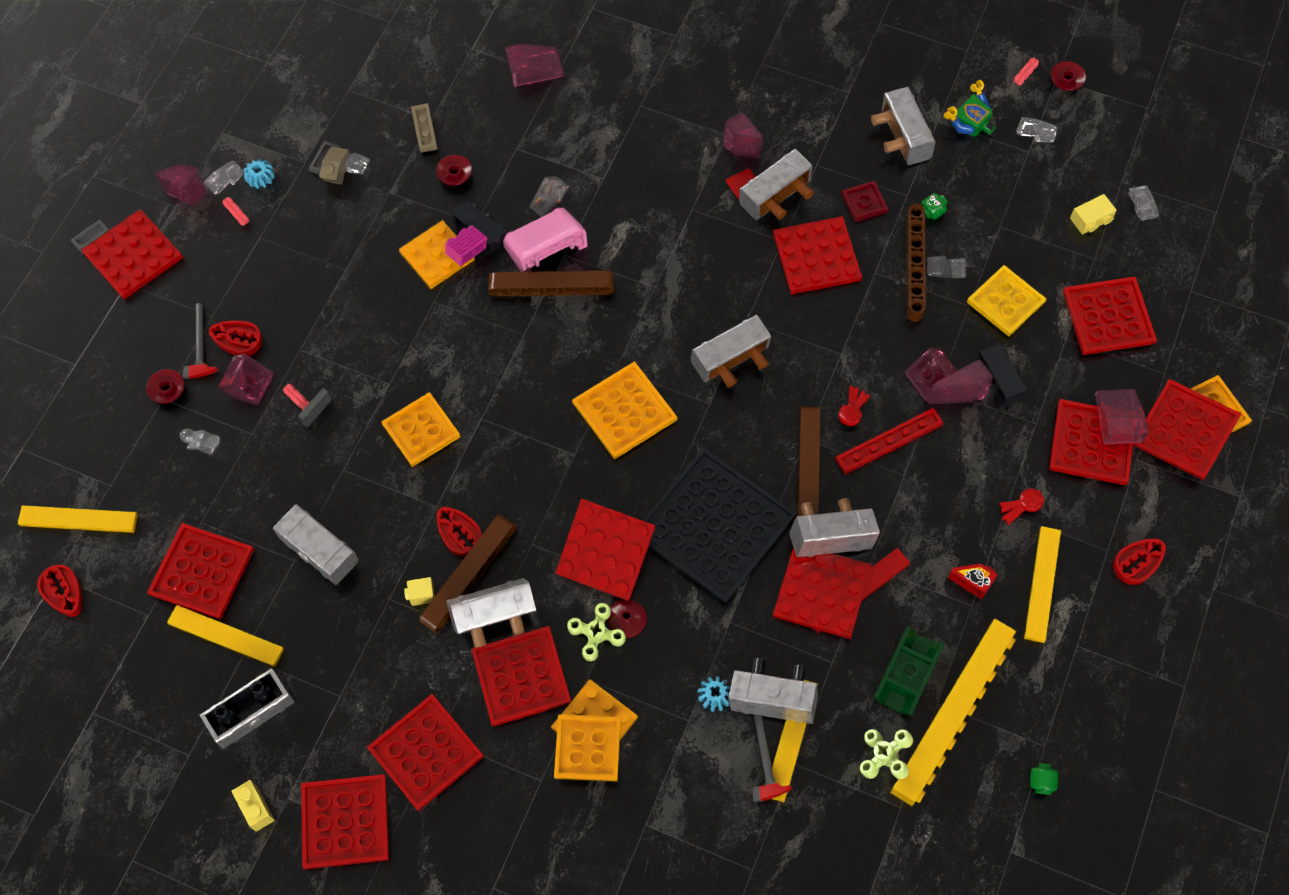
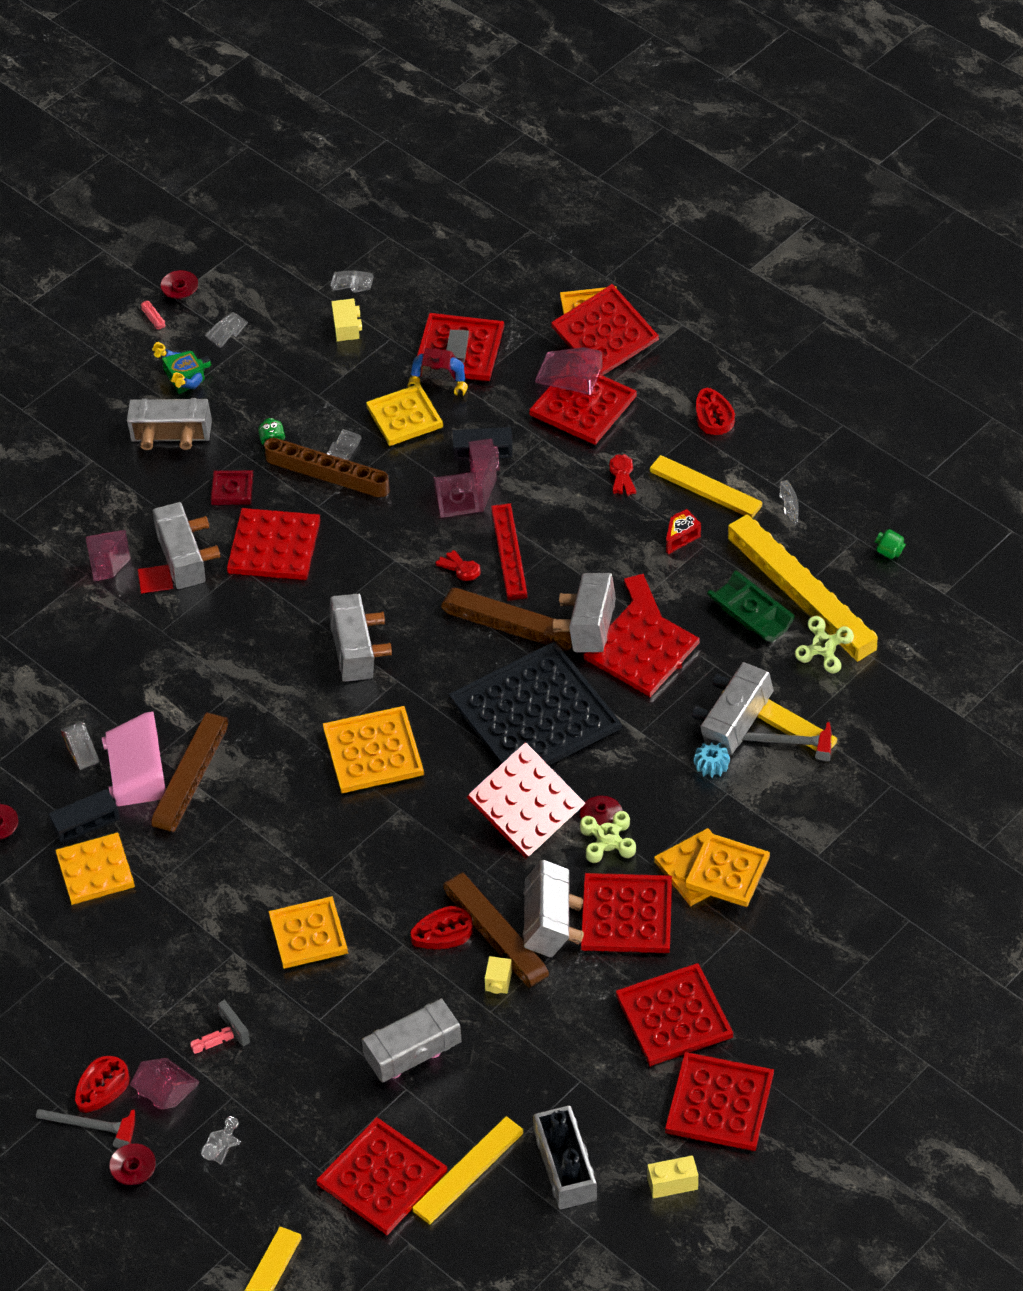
camera: 70 degrees left, 15 degrees down
(465, 245) = (107, 828): dark pink brick -> none
(1053, 668) = (790, 501): none -> clear slope
(1068, 306) = (438, 365): none -> torso
(1104, 312) = (458, 343): none -> dark grey tile

